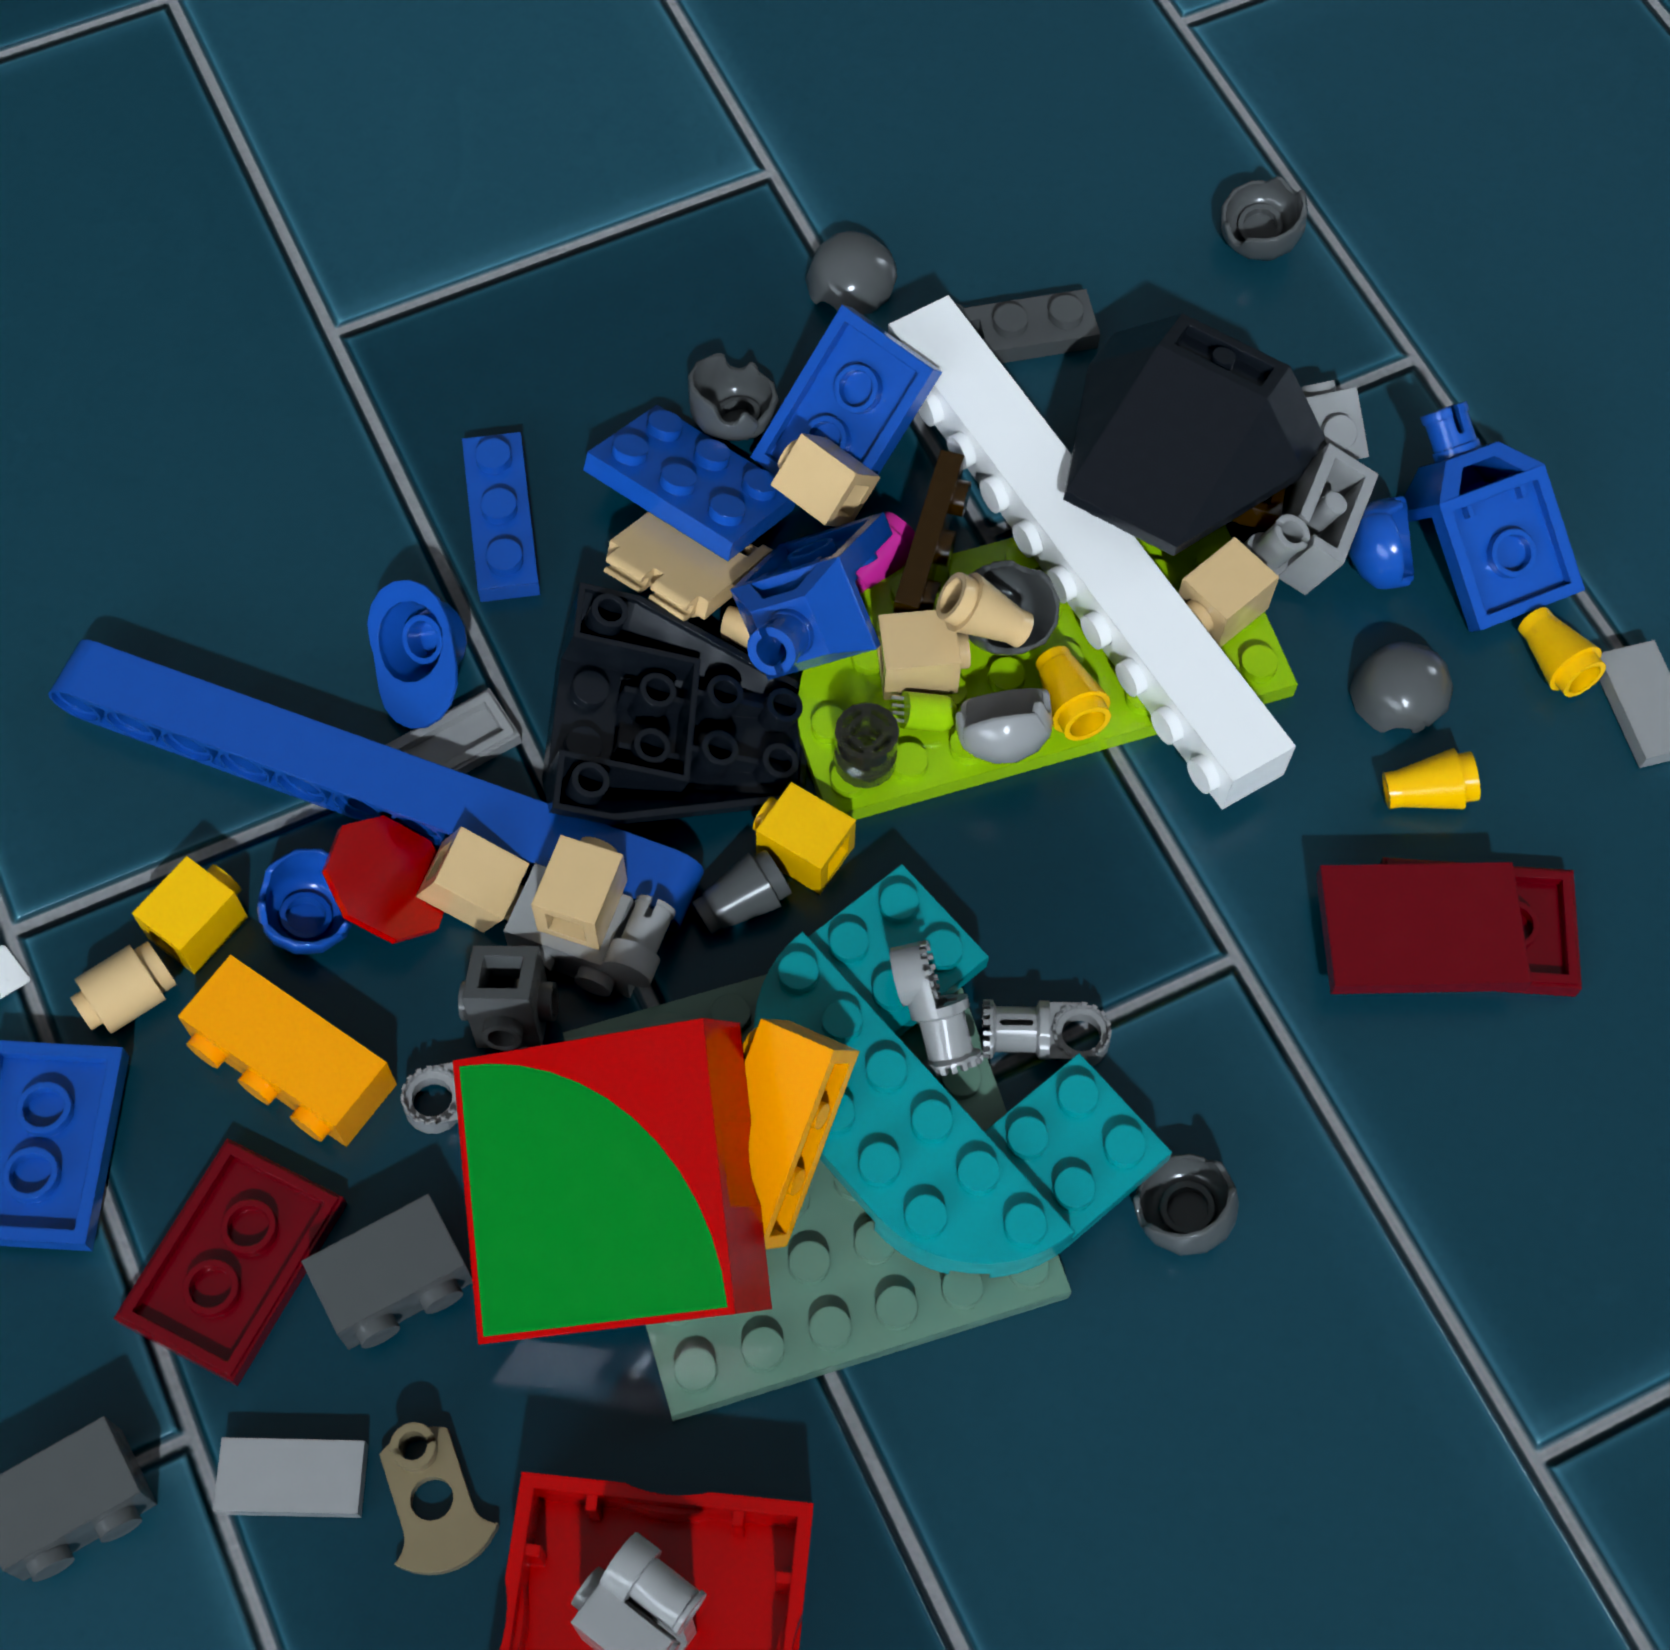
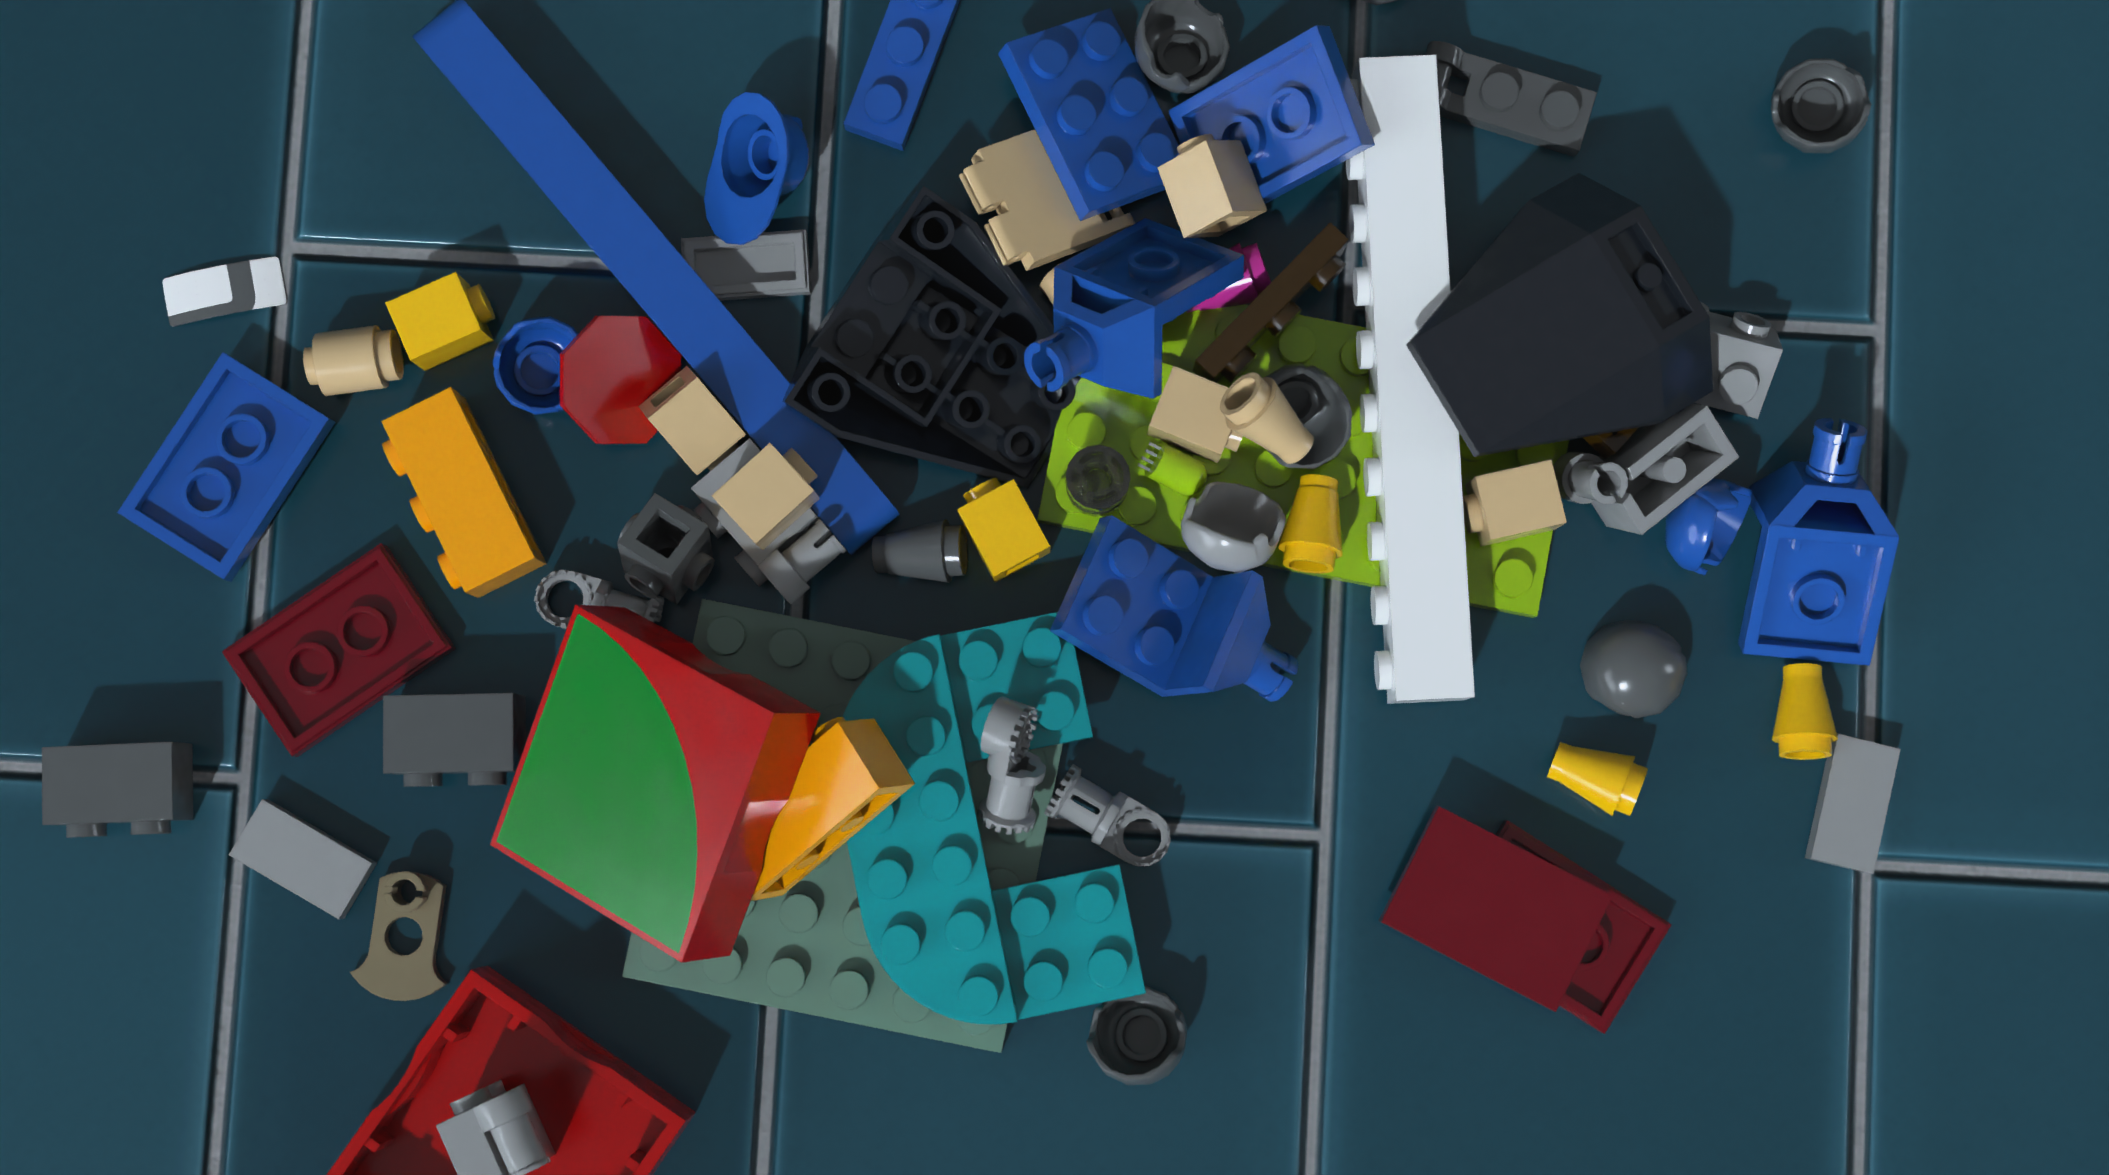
camera: 30 degrees right, 20 degrees up
(996, 837) = (1170, 619): none -> blue plate

